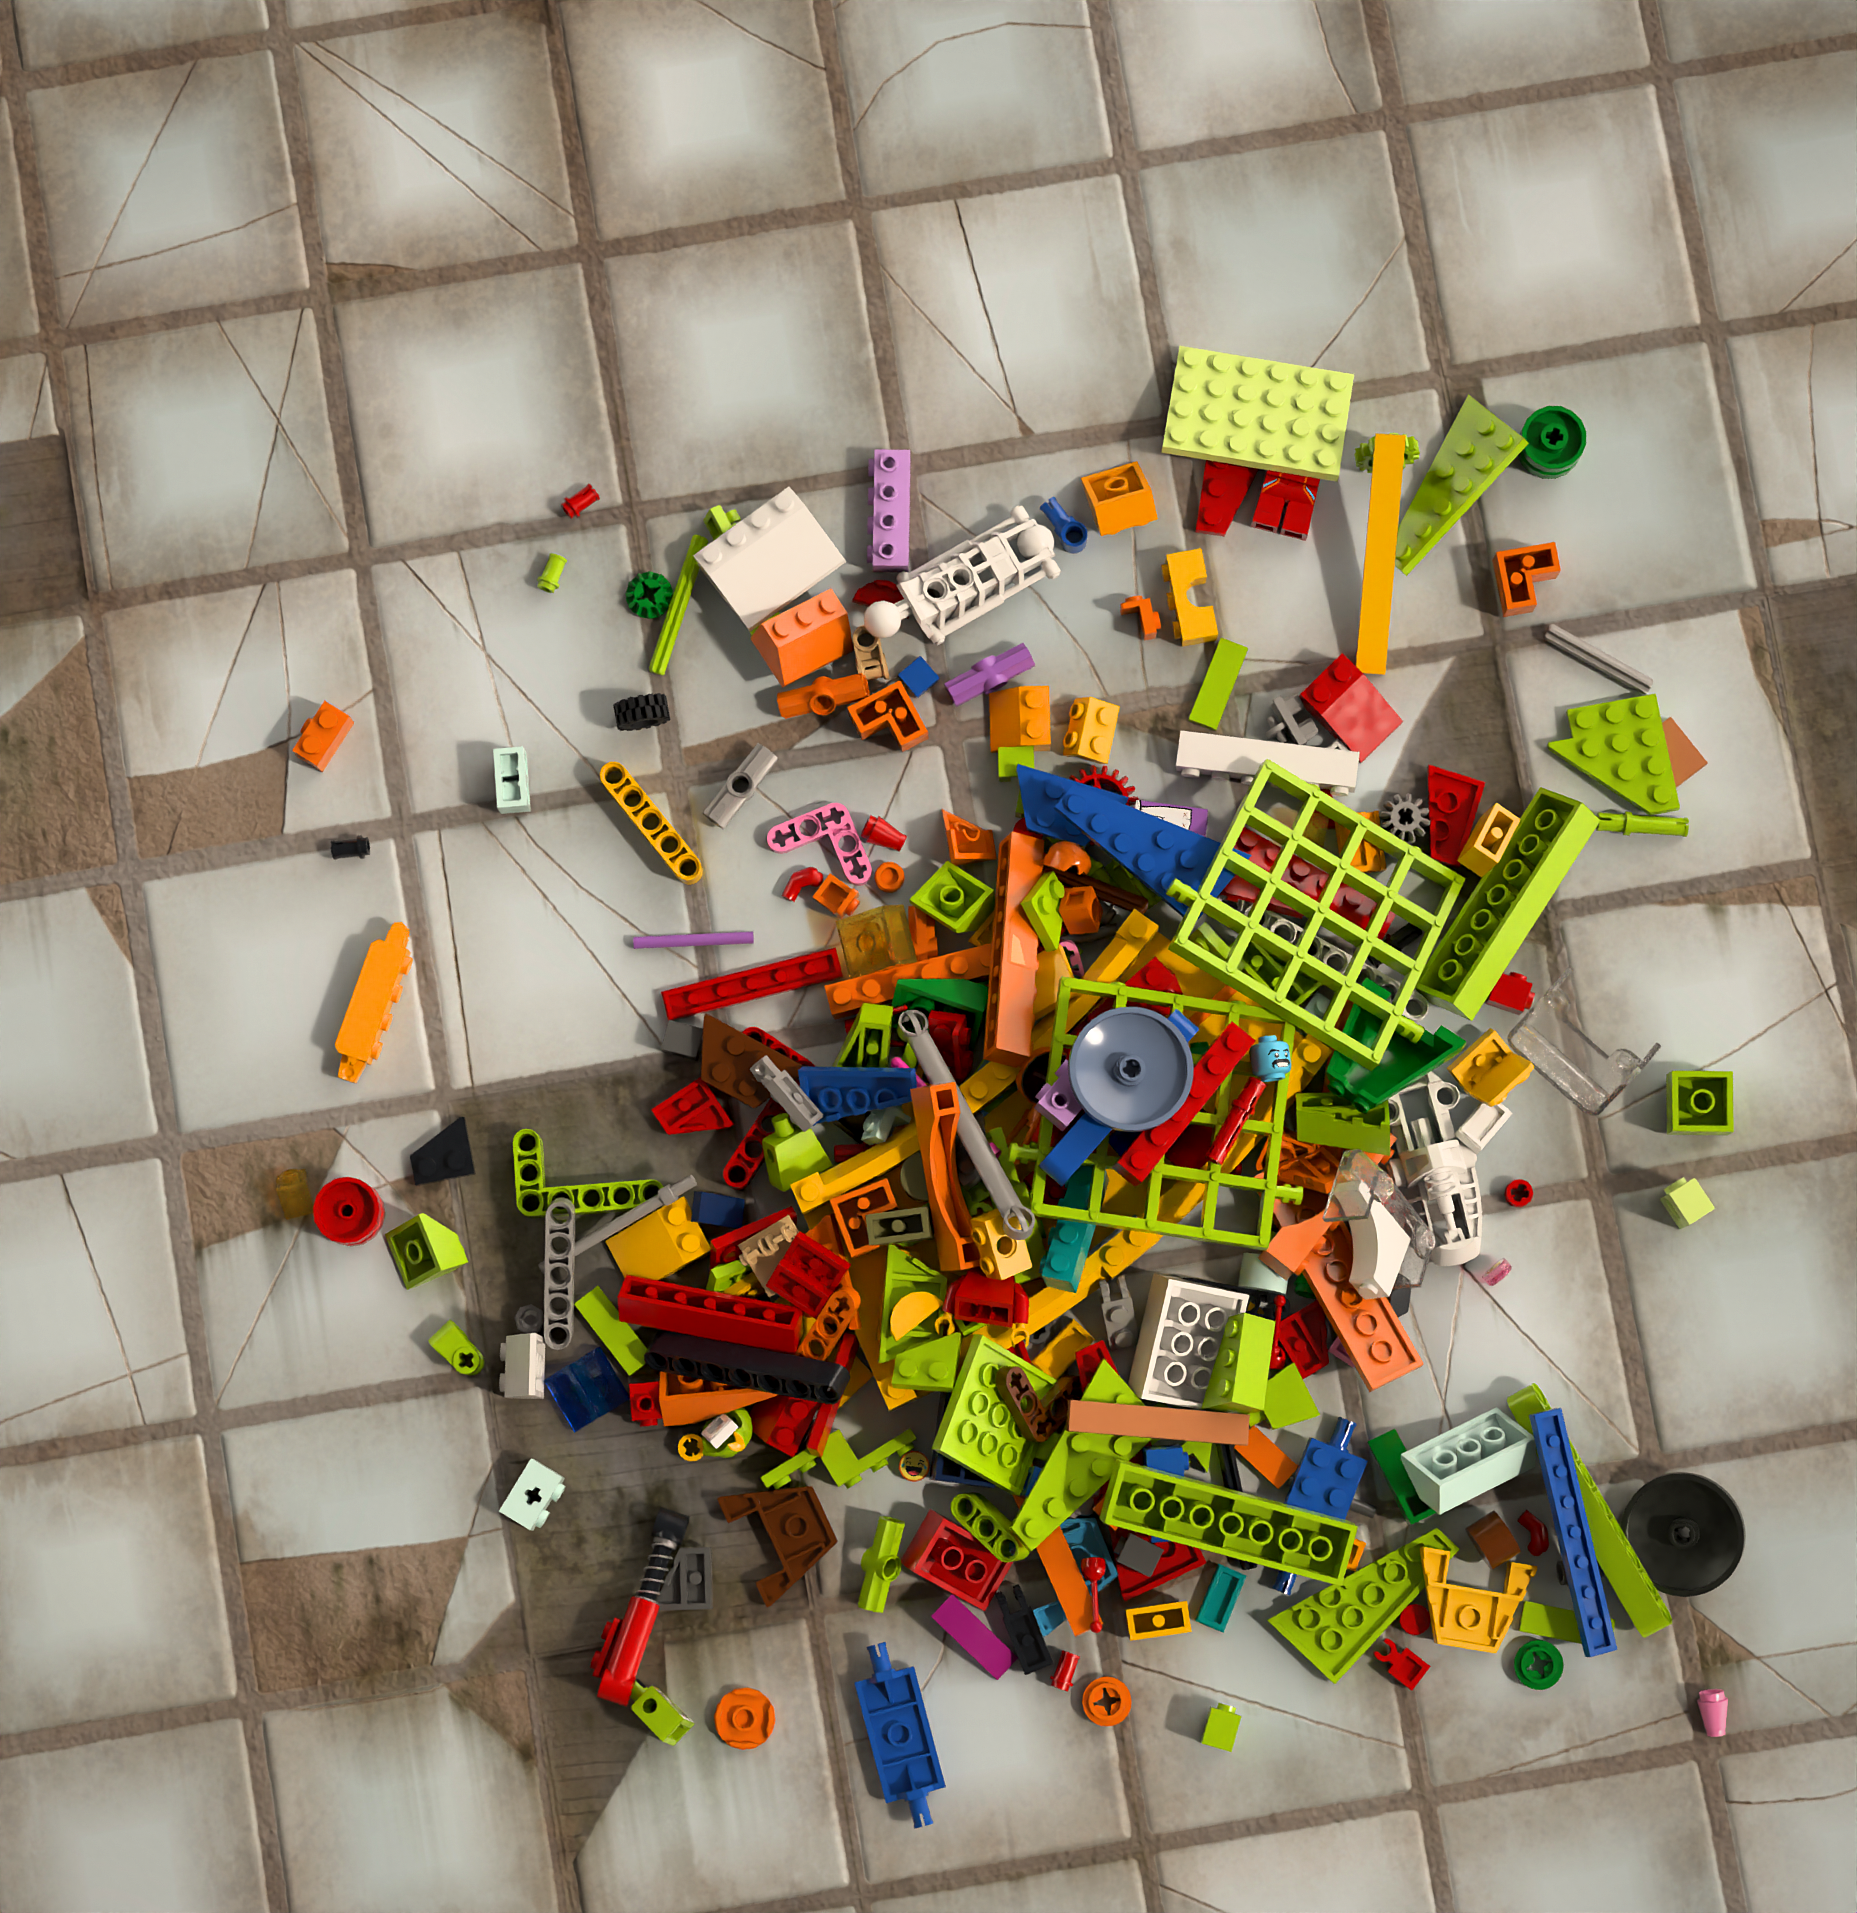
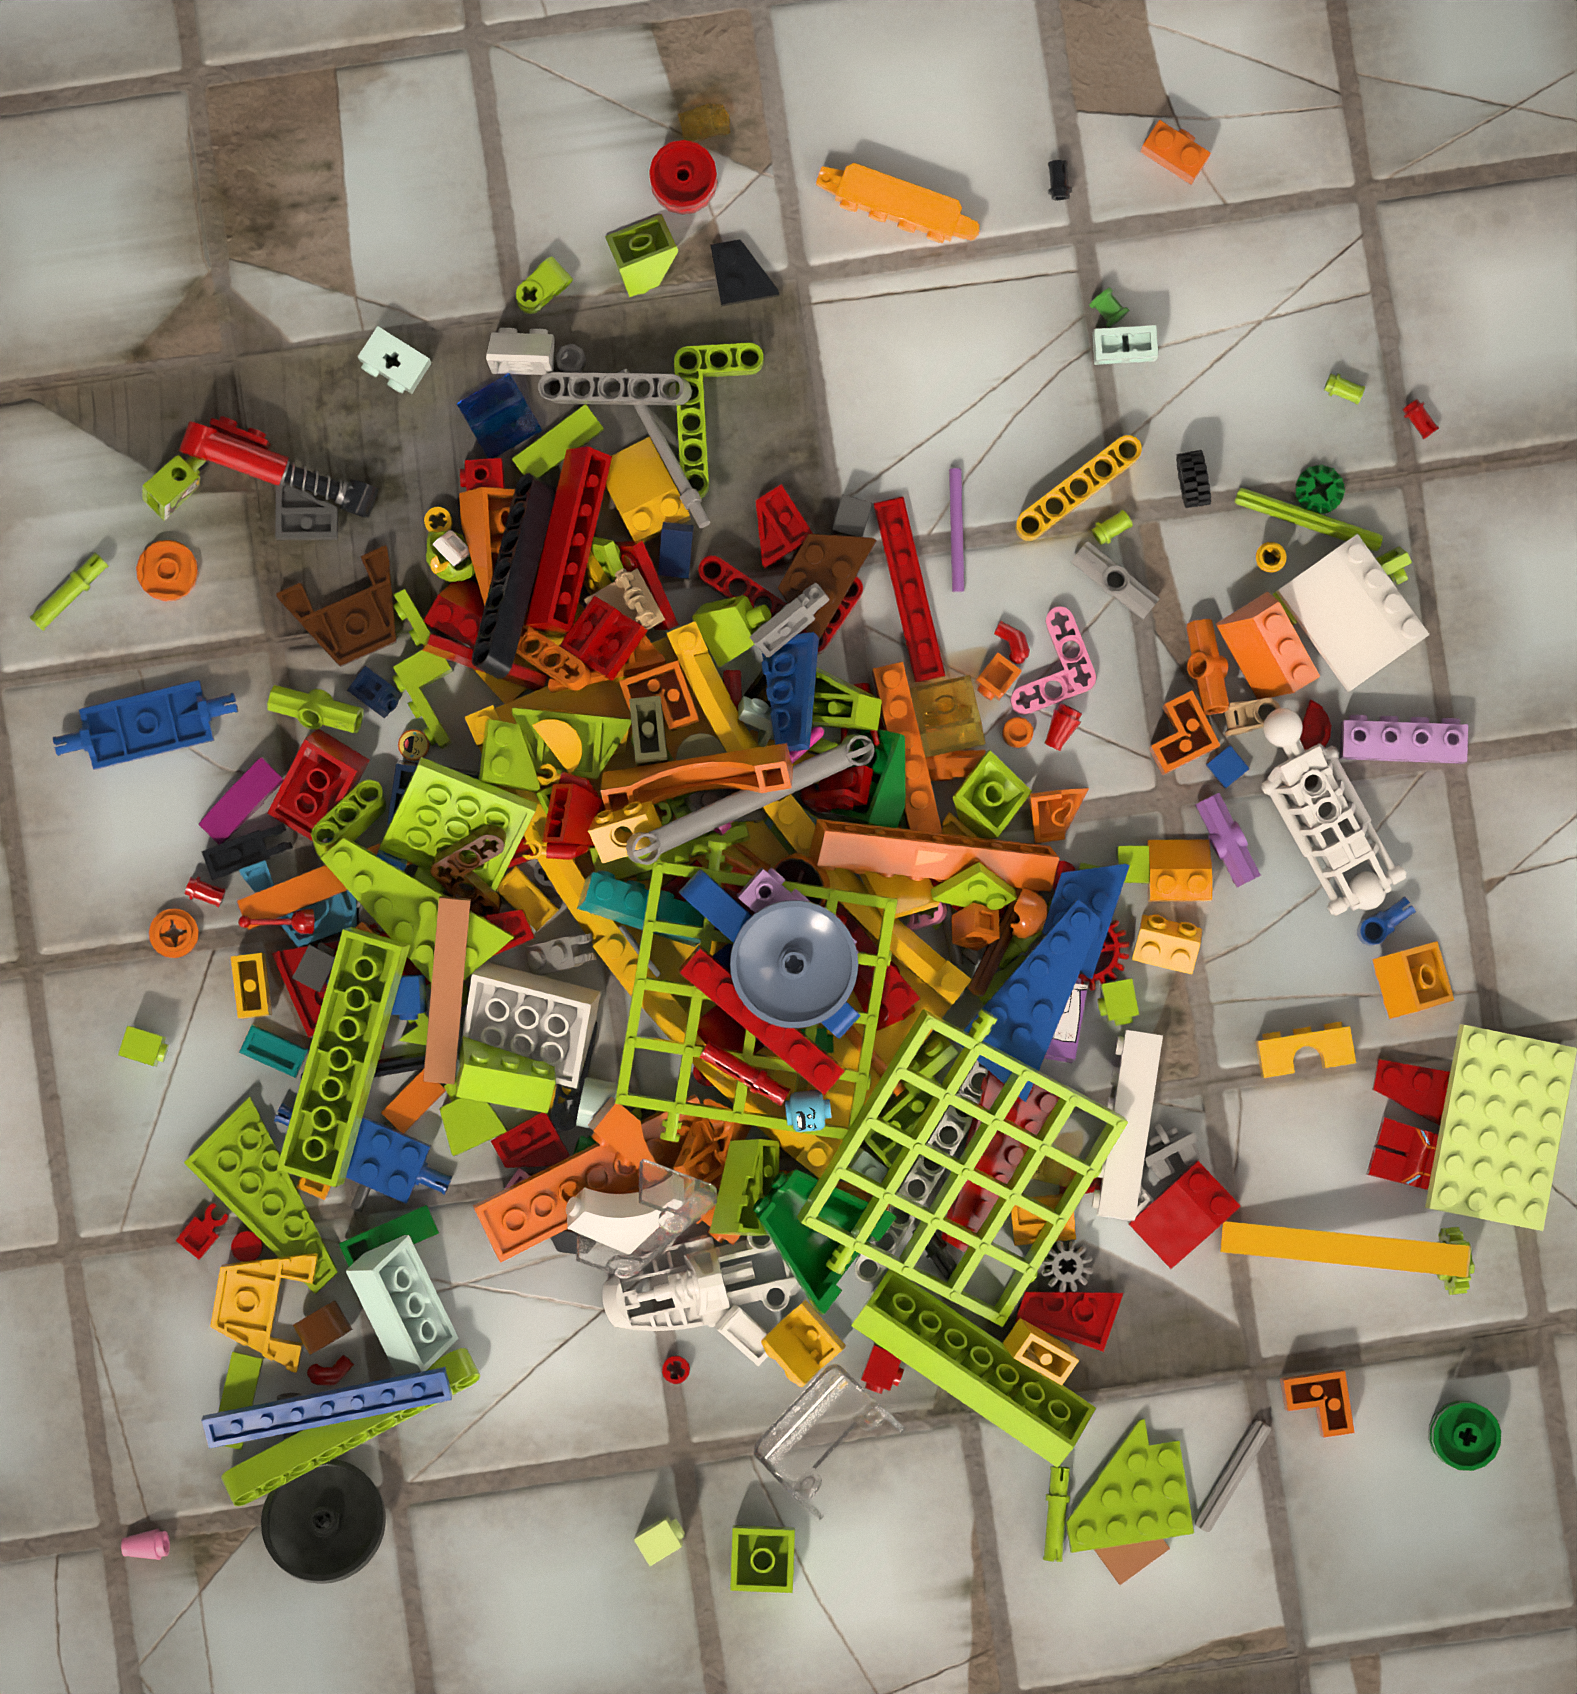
camera: 90 degrees right, 5 degrees up
(475, 797) = (1109, 307): none -> bright green bush
(693, 797) = (1112, 527): none -> lime pin
(714, 631) = (1276, 551): none -> yellow cone
(767, 1817) = (69, 591): none -> lime pin
(862, 1505) = (375, 692): none -> dark blue bracket
(1148, 619) = (1282, 1007): orange bracket -> none
(1148, 774) = (1118, 1002): none -> lime brick
(1218, 684) = (1213, 1077): lime tile -> none
(1277, 1354) = (514, 1115): red hinge -> none
(1464, 467) = (1439, 1343): lime wing -> none
(1497, 1272) = (594, 1343): clear pink tile -> none
(1552, 1671) = (192, 1383): green gear -> none

